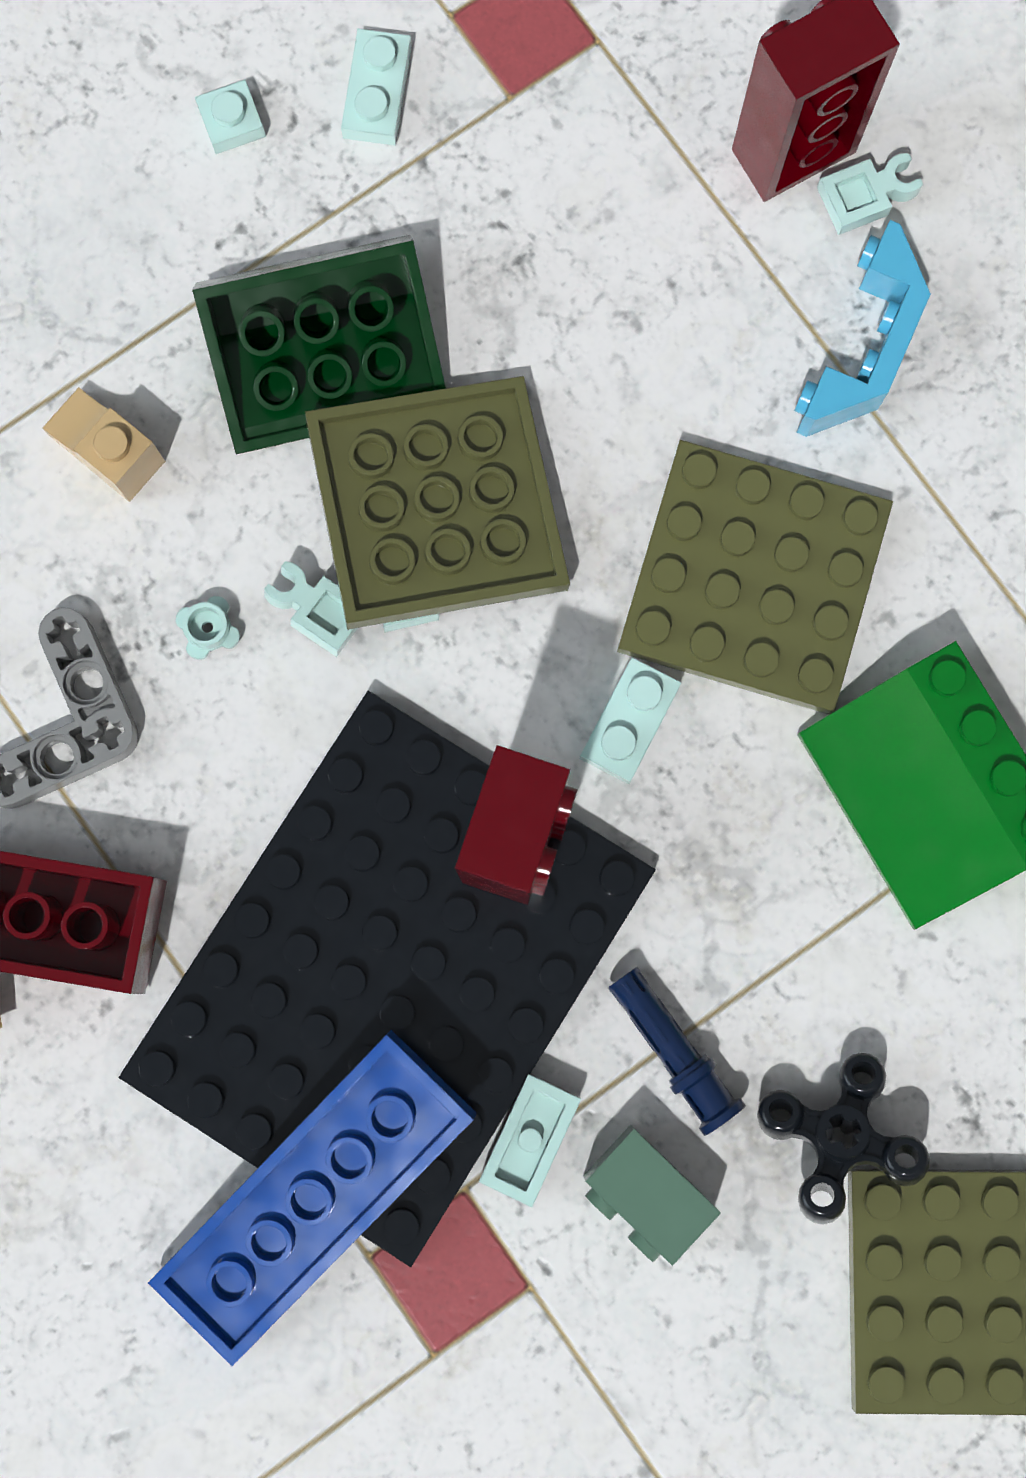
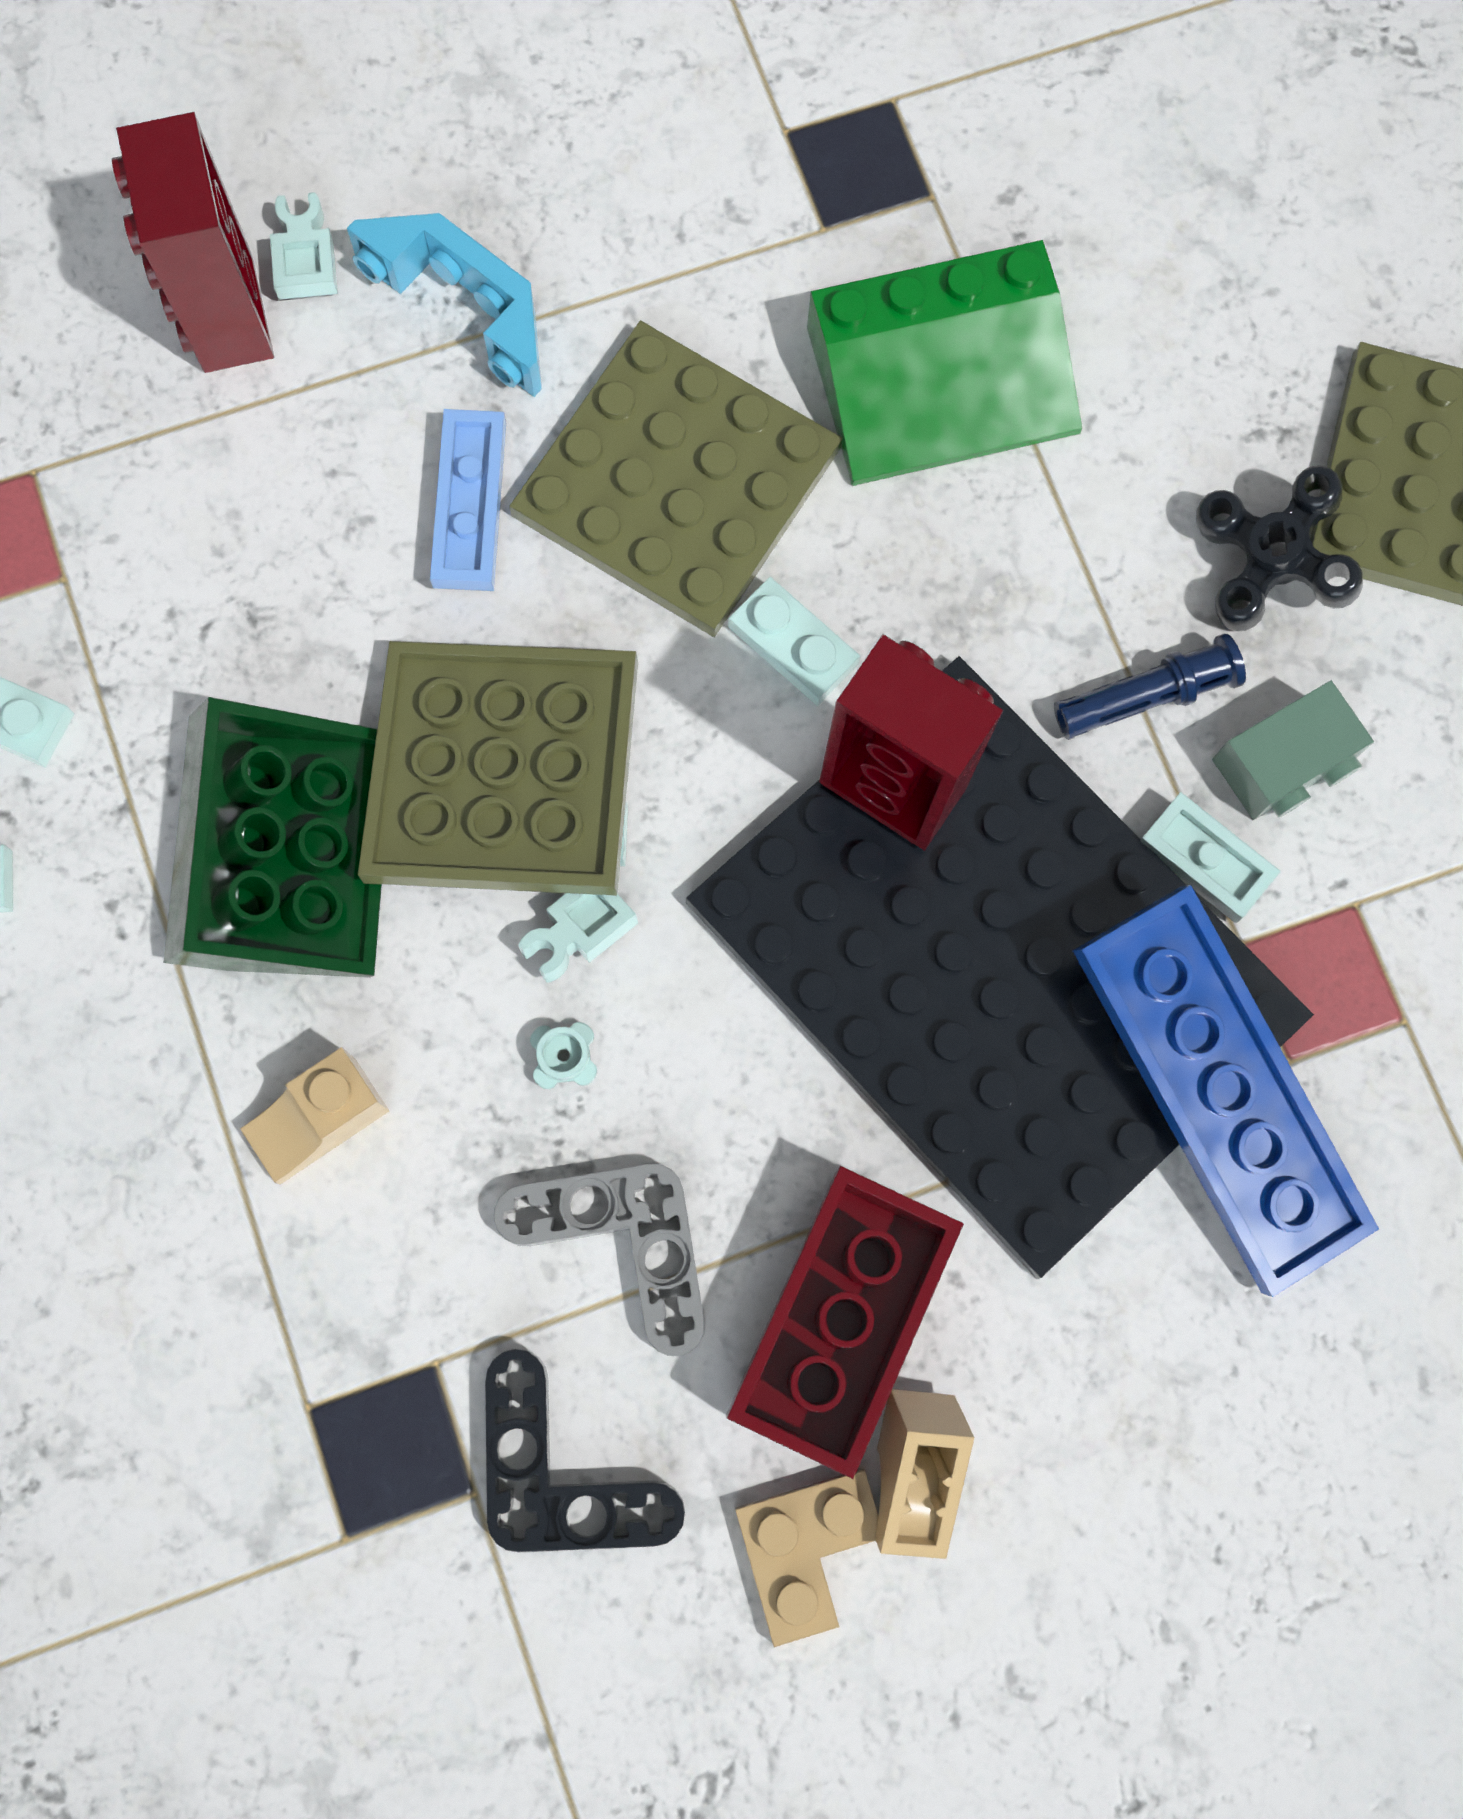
camera: 80 degrees left, 5 degrees down
(675, 403) = (468, 500): none -> light blue plate

